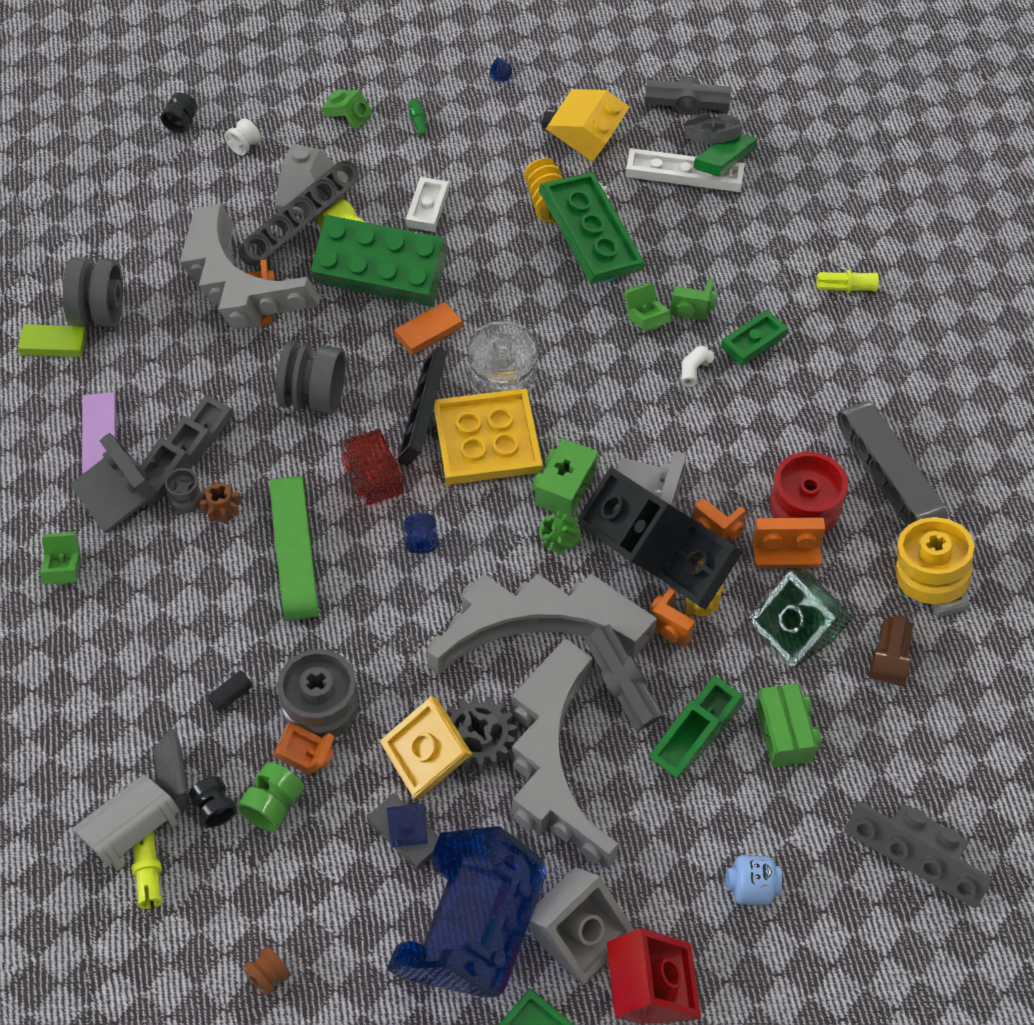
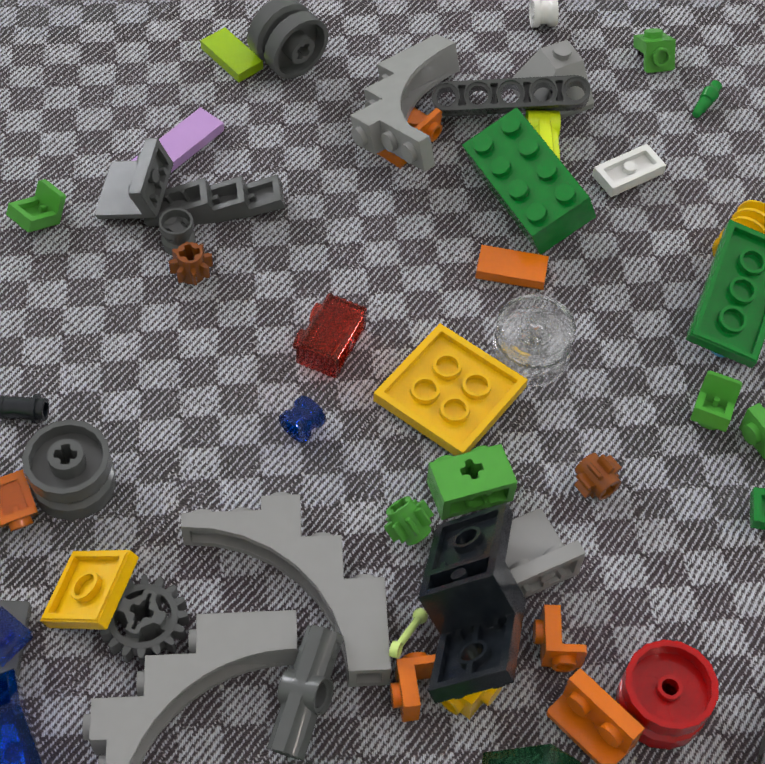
camera: 45 degrees right, 0 degrees up
(293, 548) = (197, 344): bright green beam -> none
(305, 376) = (363, 224): dark grey wheel -> none
(422, 407) = (426, 321): black tile -> none
(628, 582) = (419, 617): none -> yellowish green hinge
(633, 409) = (597, 476): none -> dark orange gear
(690, 363) = (705, 483): white arm -> none

